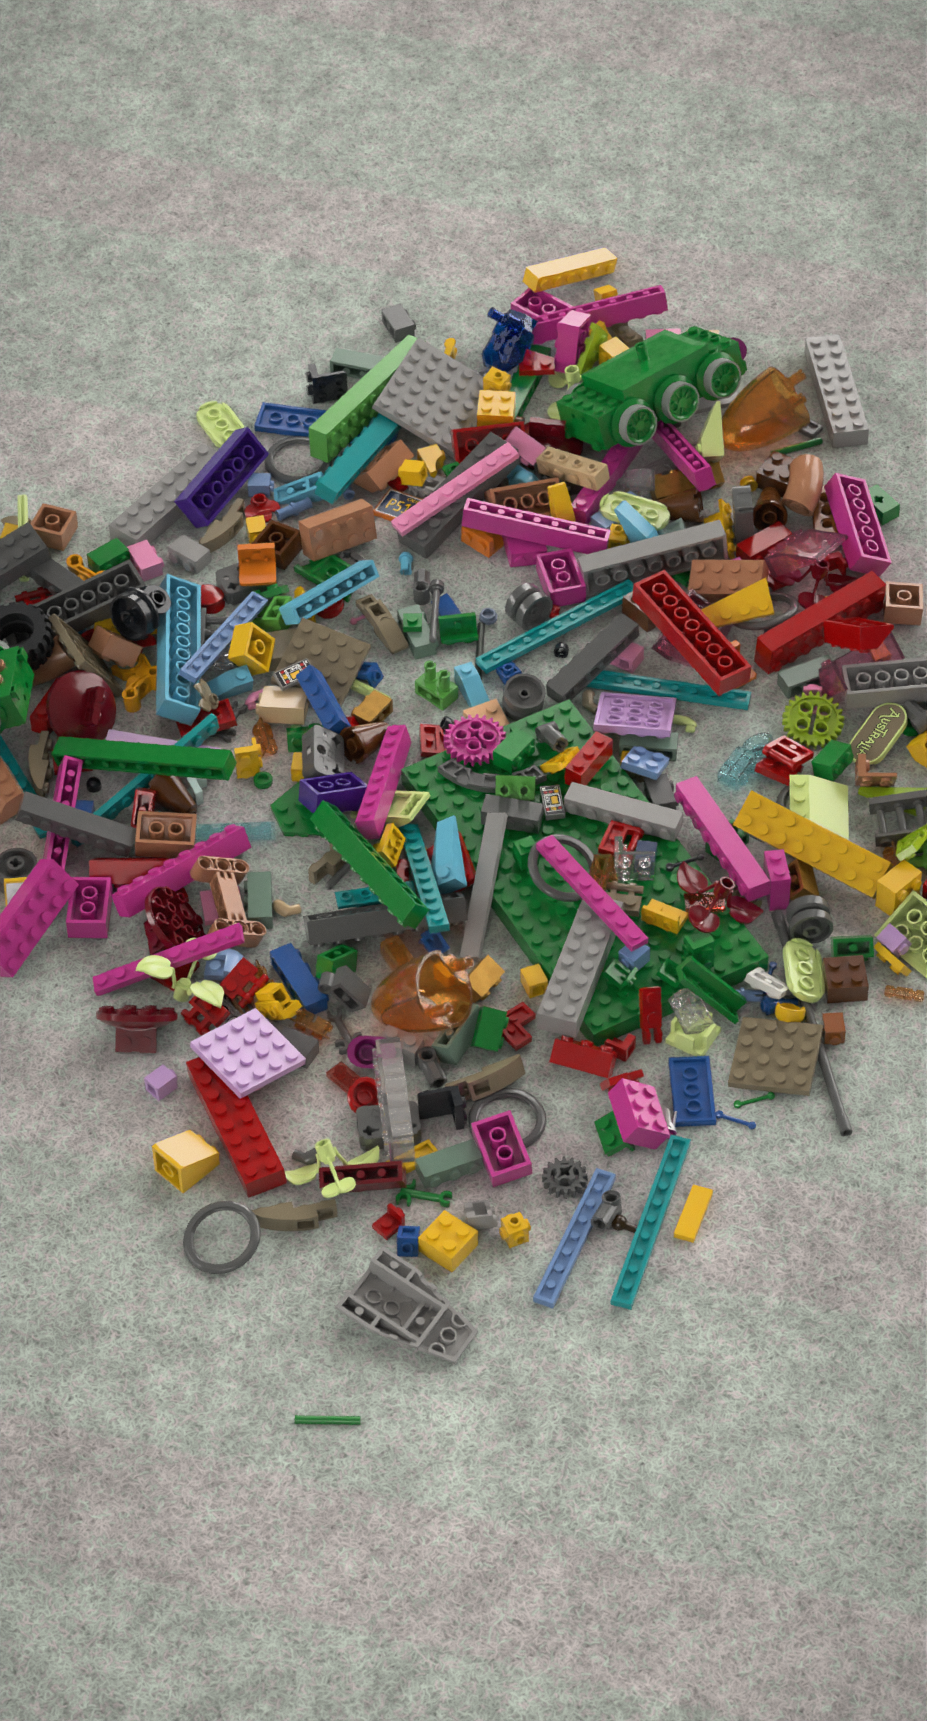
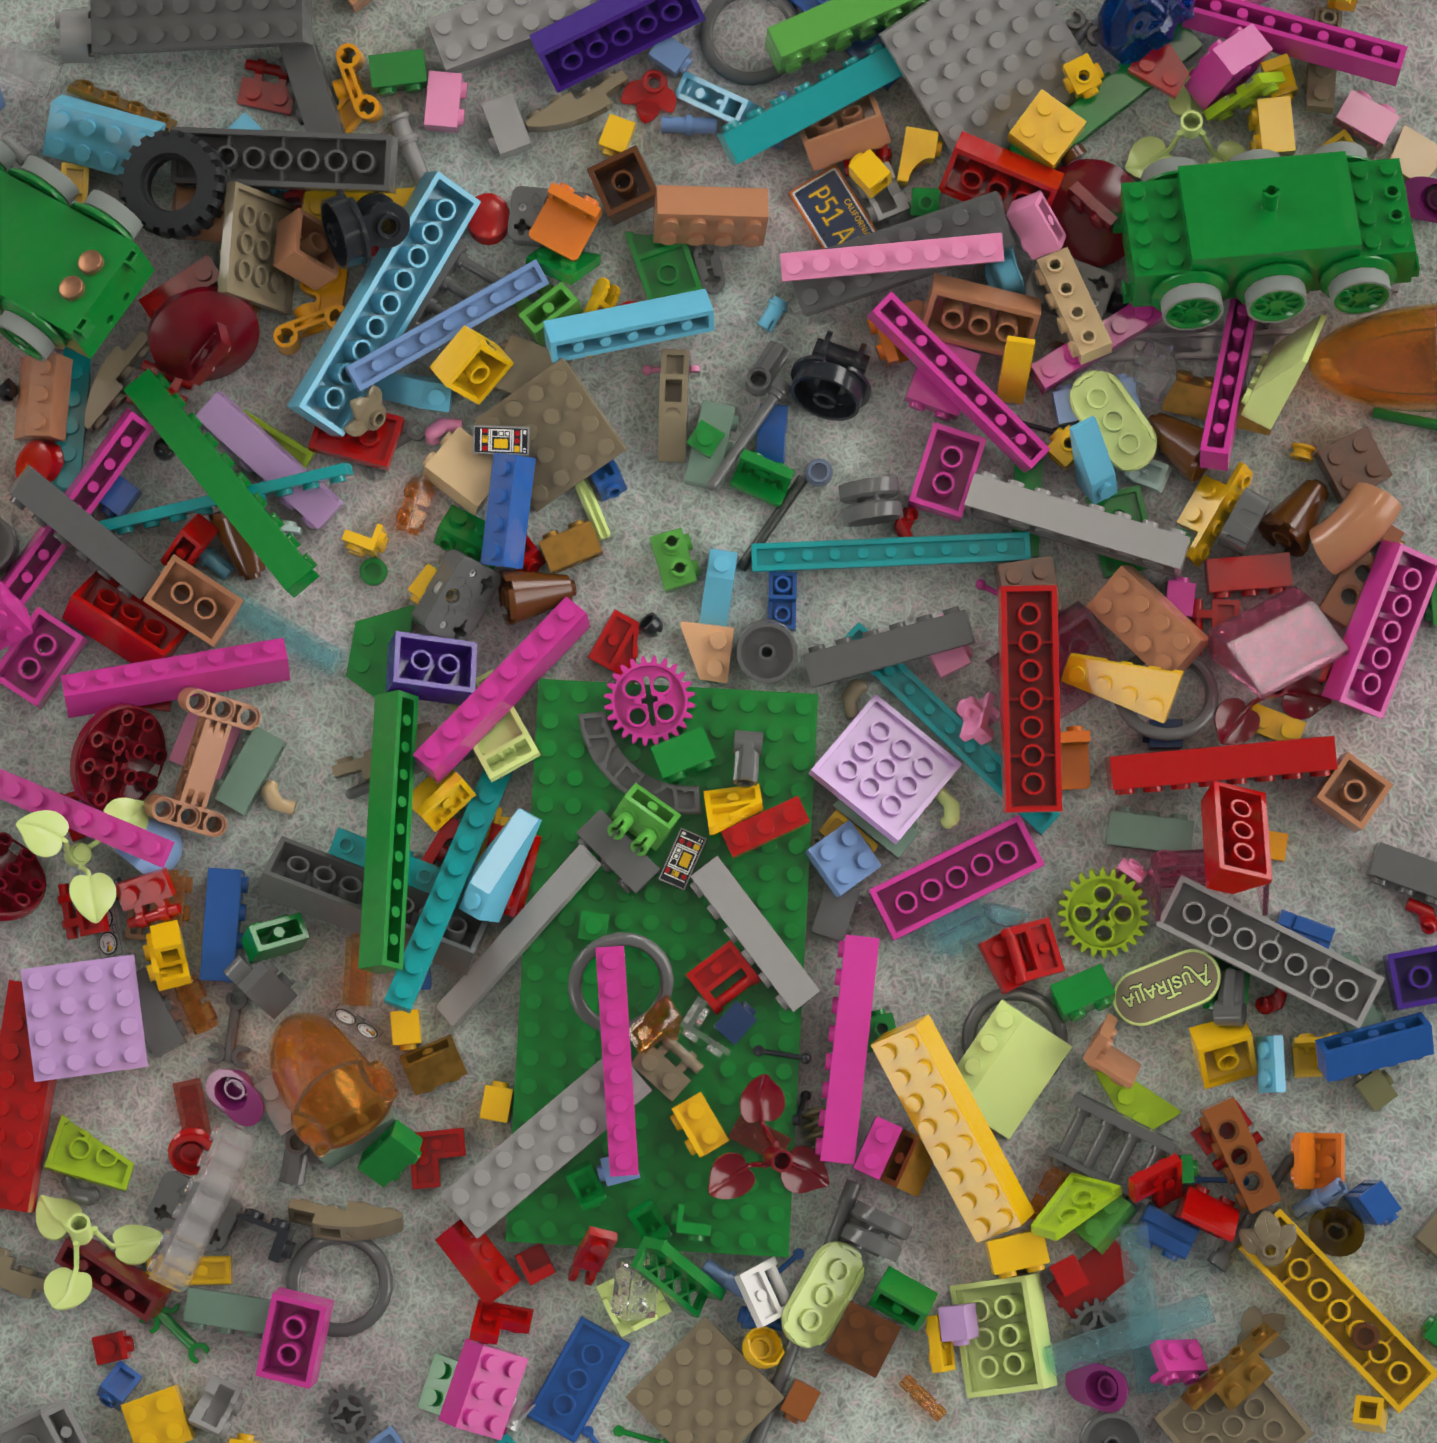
camera: 30 degrees right, 35 degrees up
(17, 828) = (43, 457): none -> red piece
(294, 1137) = (86, 1158): none -> lime wing
(455, 559) = (831, 380): none -> black piece
(565, 650) = (874, 588): black hinge -> none
(667, 669) = (977, 718): none -> bright pink hips
(723, 732) = (956, 877): none -> dark pink brick

